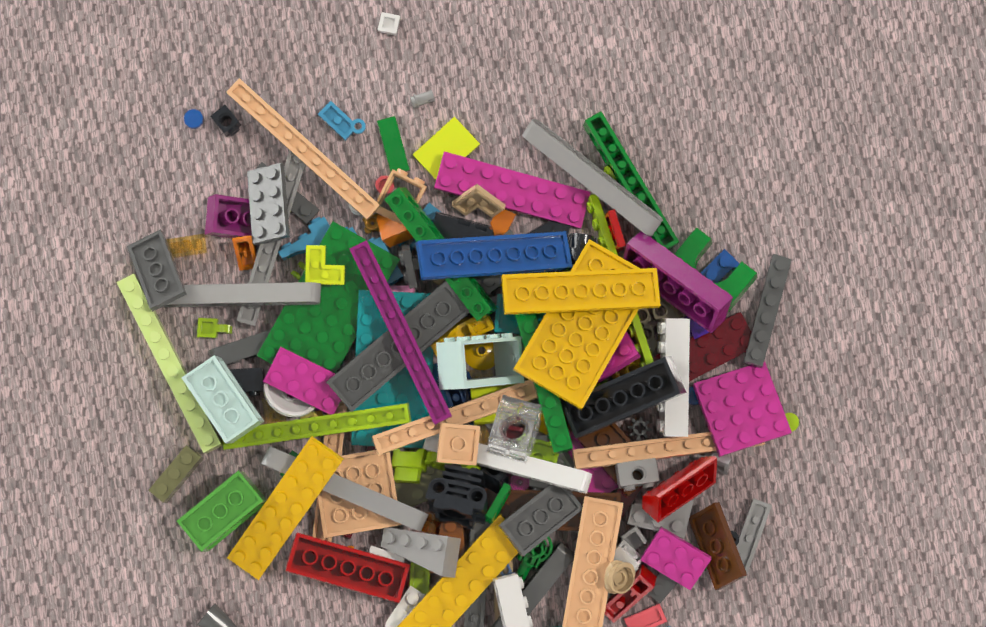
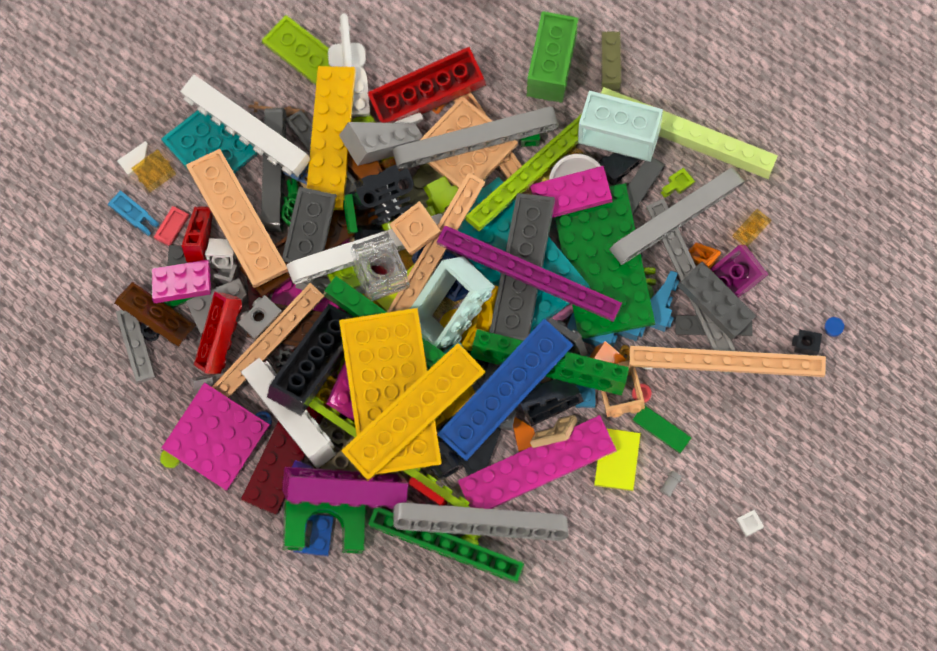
camera: 140 degrees right, 10 degrees down
(156, 270) = (756, 188): dark grey plate -> none
(285, 507) = (508, 92): yellow plate -> none
(319, 272) = (631, 274): neon yellow tile -> none
(340, 121) = (719, 413): dark azure hinge -> none
(619, 577) = (214, 231): tan piece -> none
(767, 310) = (254, 531): dark grey plate -> none

